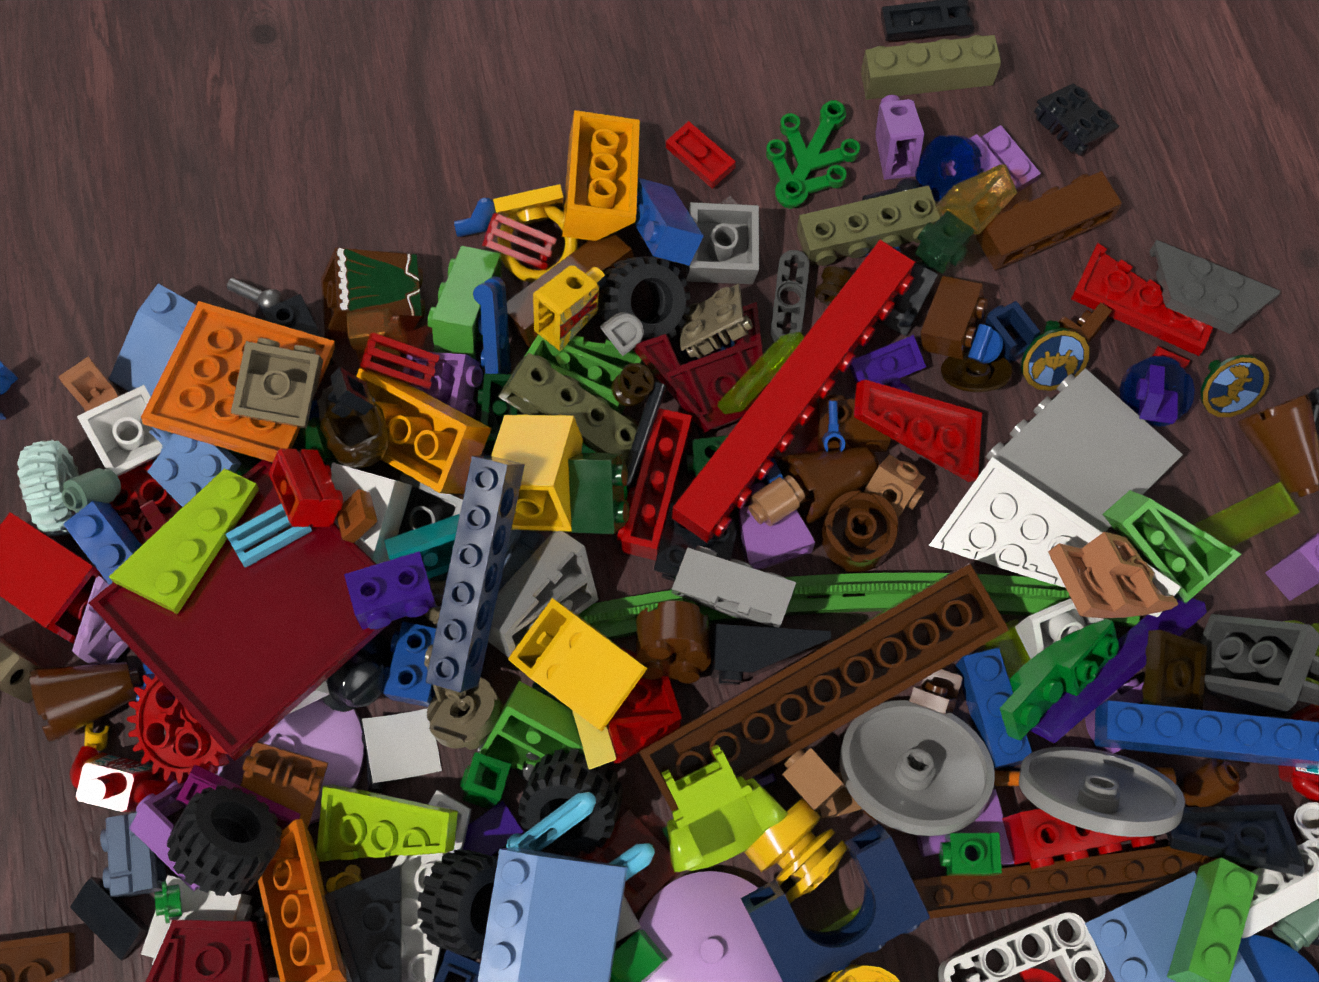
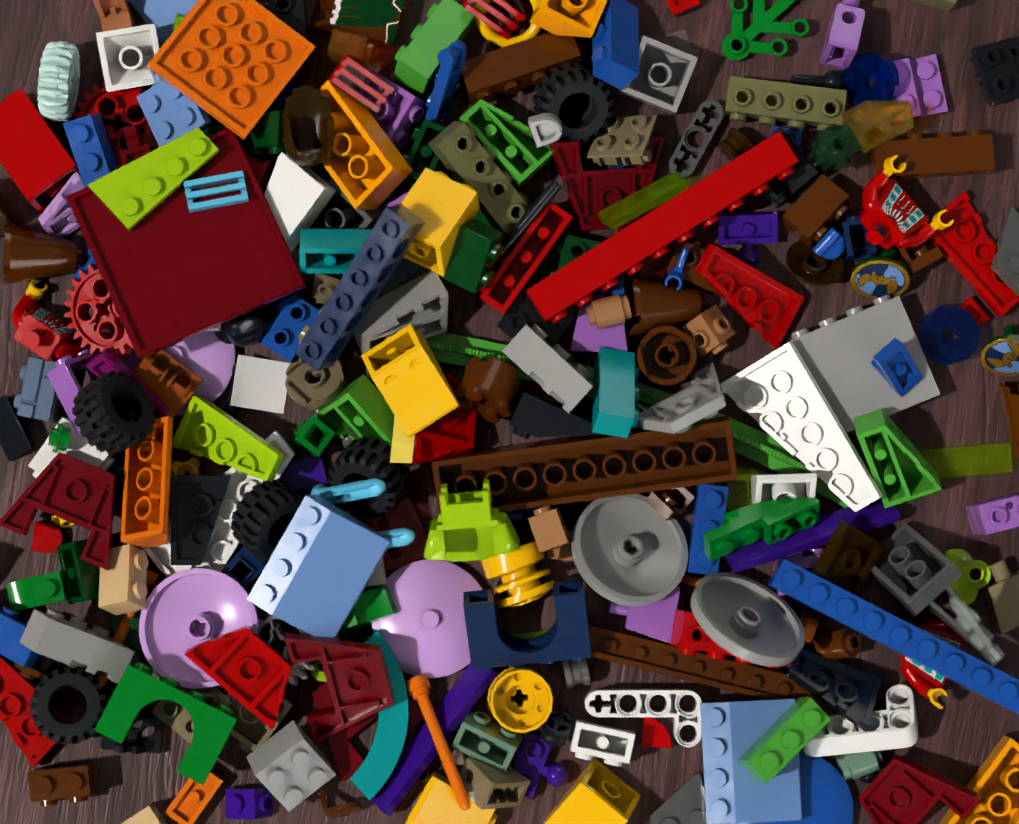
camera: 20 degrees right, 15 degrees up
(94, 485) = (89, 99): sand green brick -> none
(277, 383) = (260, 75): dark tan plate -> none
(305, 488) = (255, 168): red brick -> none
(349, 394) = (313, 104): black tile -> none
(356, 516) = (285, 205): dark orange plate -> none
(390, 591) = (292, 278): dark purple brick -> none
(566, 304) = (510, 90): yellow torso -> none
(641, 384) = (541, 176): dark brown wheel -> none
(822, 588) = (615, 393): none -> teal brick
(915, 948) = (576, 672): none -> flat silver wheel
(921, 556) = (686, 407): none -> light grey wing
(988, 854) = (651, 629): green brick -> none
(1038, 286) = (893, 215): none -> red torso
(1109, 579) = (827, 472): nougat slope -> none
(1123, 438) = (897, 367): none -> blue slope
(1156, 402) = (939, 345): dark purple bracket -> none

